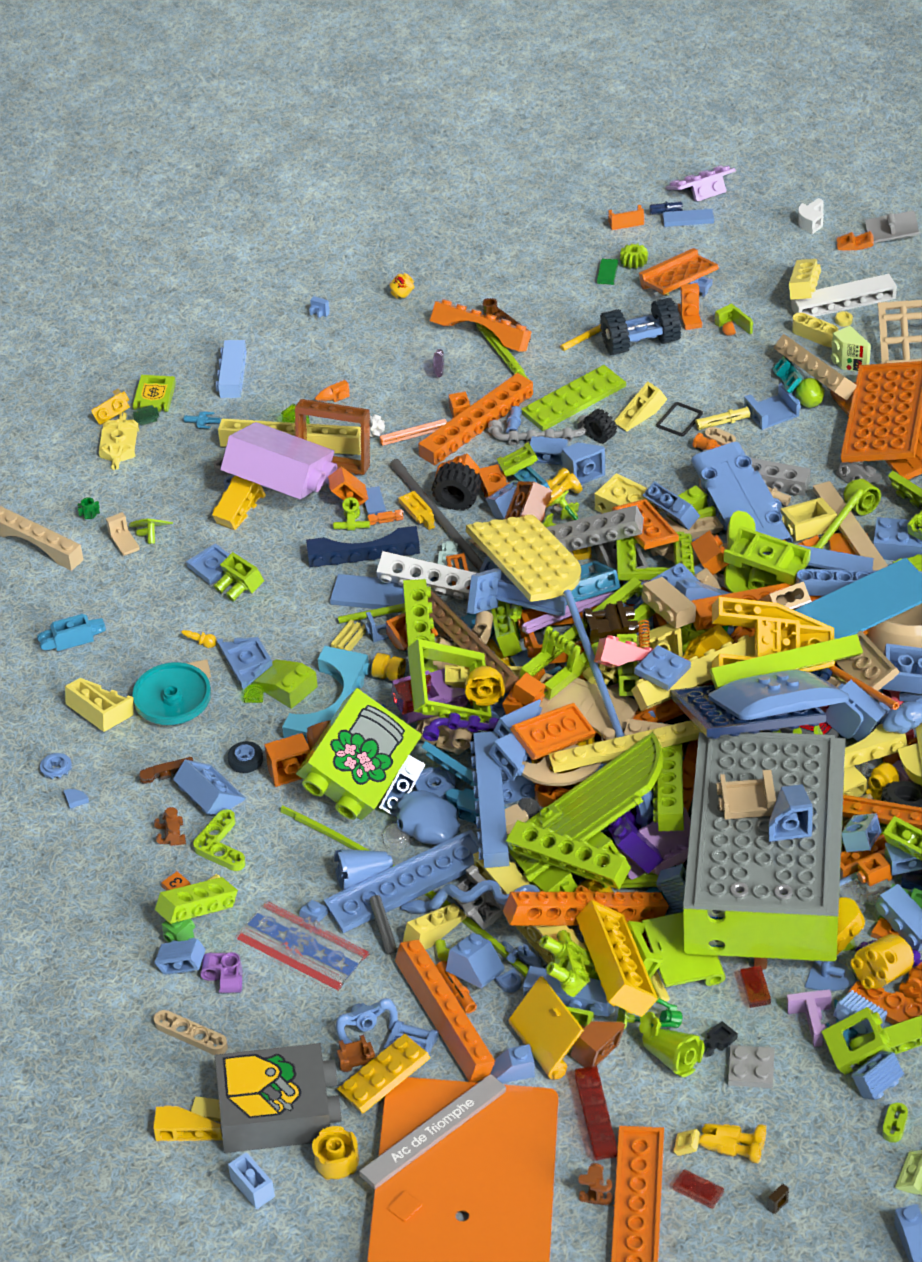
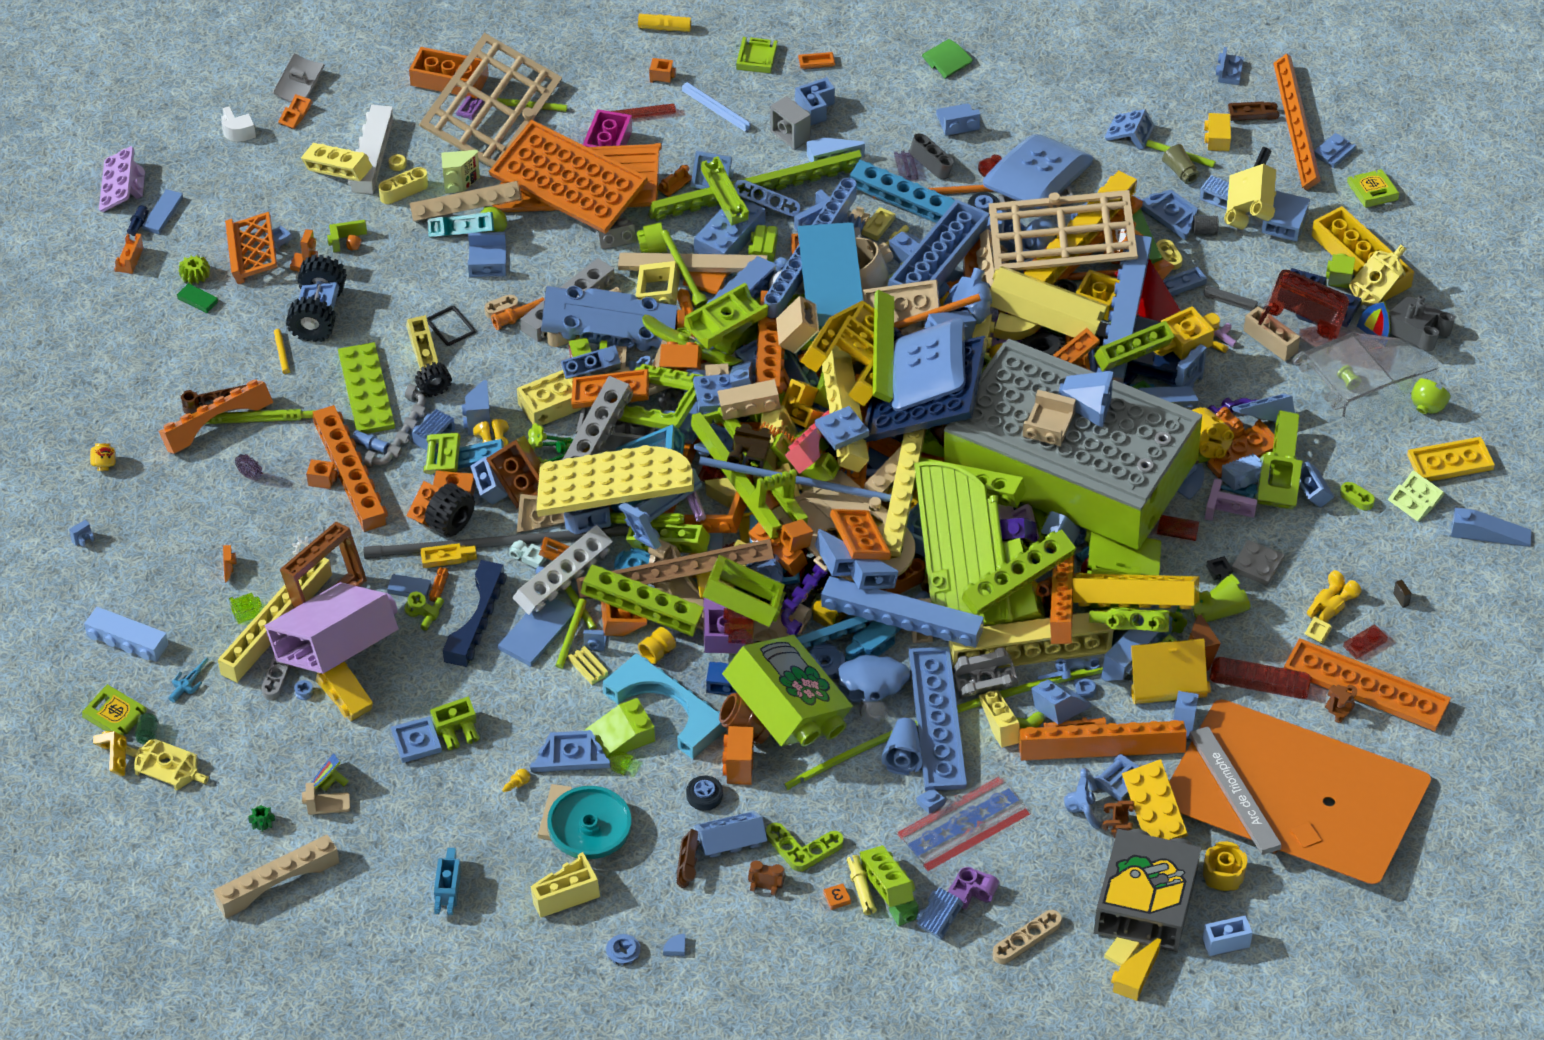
camera: 70 degrees left, 5 degrees up
(346, 485) = (397, 591): orange brick -> none
(383, 924) = (980, 751): dark grey axle -> none
(412, 432) = (331, 510): axle -> none
(421, 907) = (968, 721): medium blue animal -> none
(484, 685) = (763, 564): yellow cylinder -> none
(729, 416) = (478, 288): light yellow pin -> none

